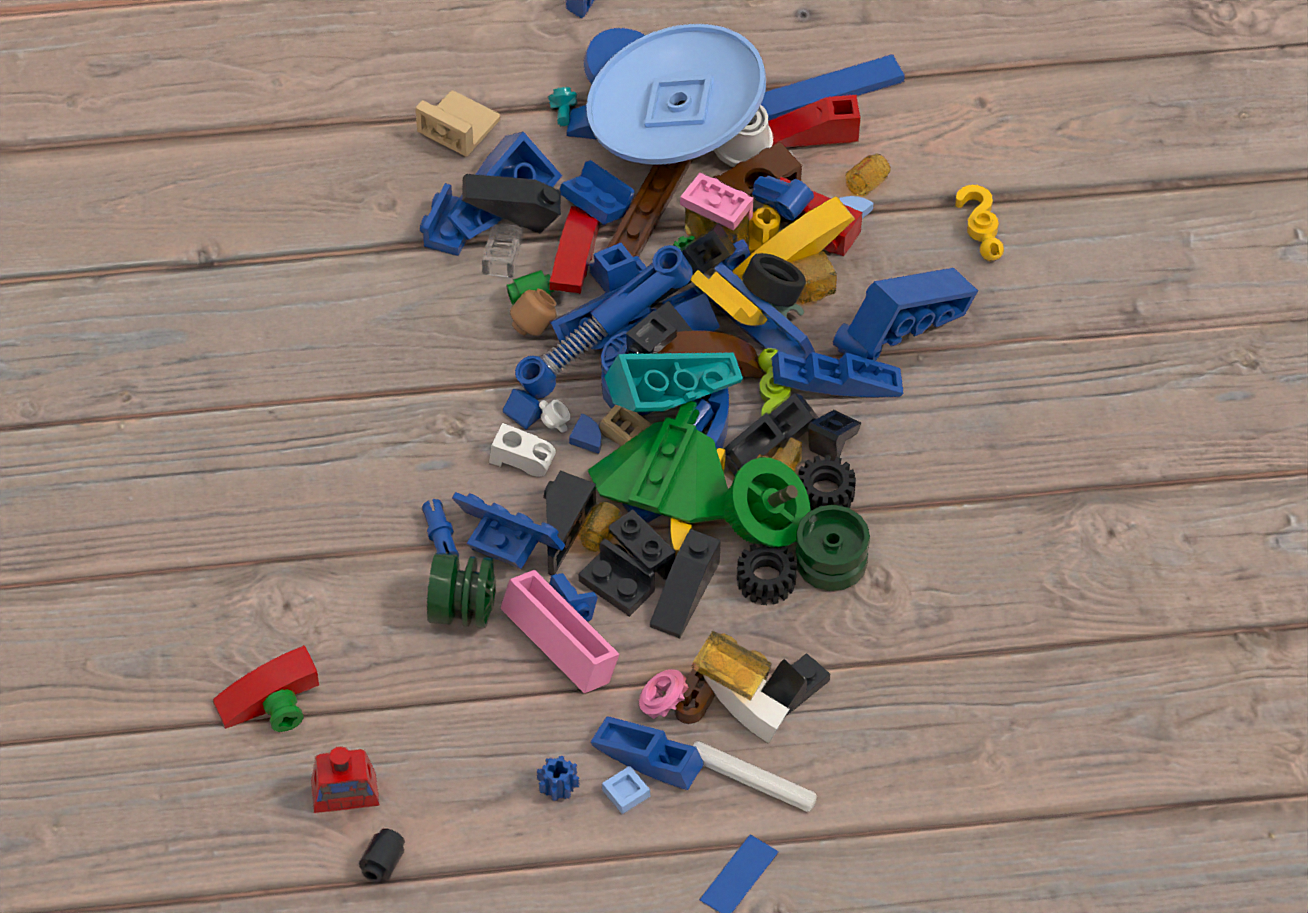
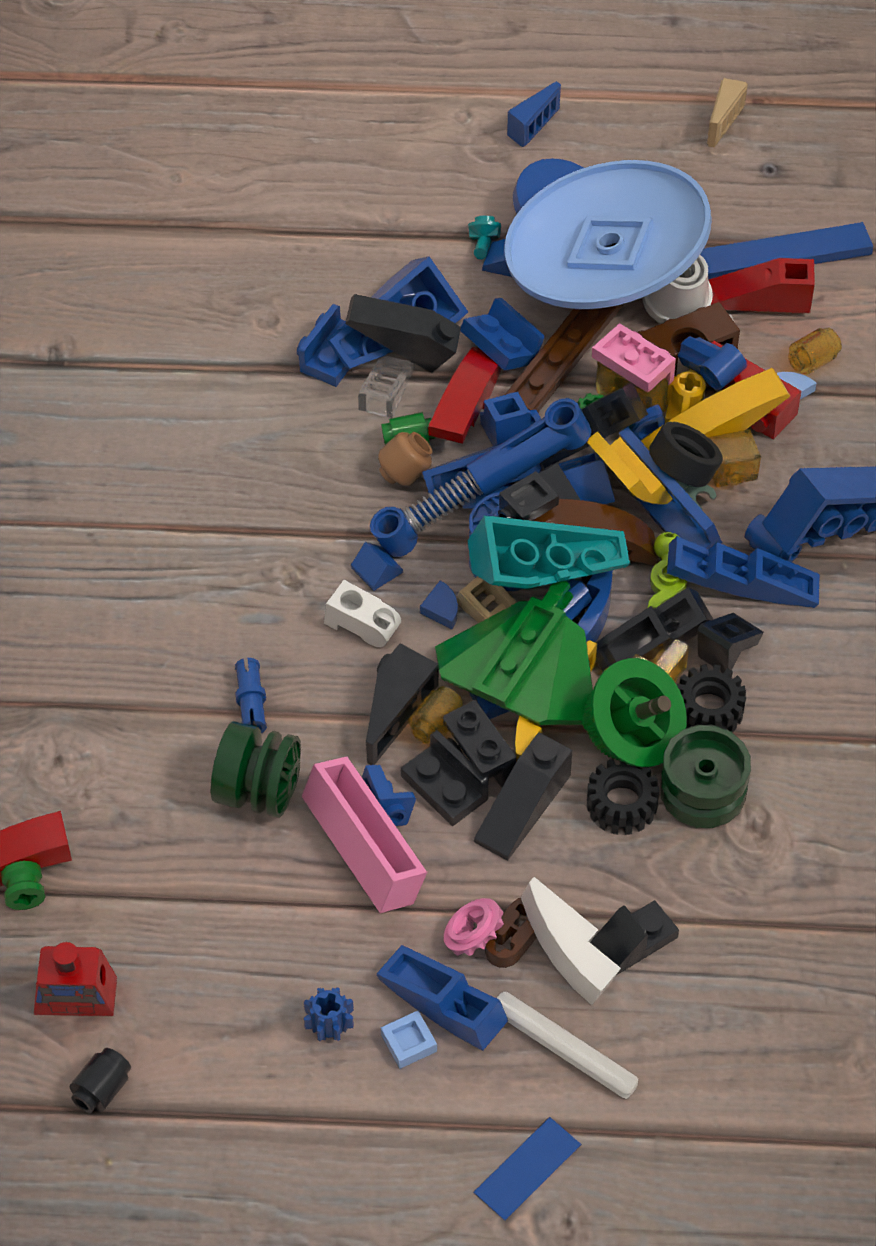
camera: 10 degrees right, 0 degrees up
(456, 122) = (361, 241): tan bracket -> none
(505, 535) = (321, 711): blue bracket -> none
(554, 415) = (408, 578): white plate -> none
(732, 665) = (558, 905): clear yellow bracket -> none

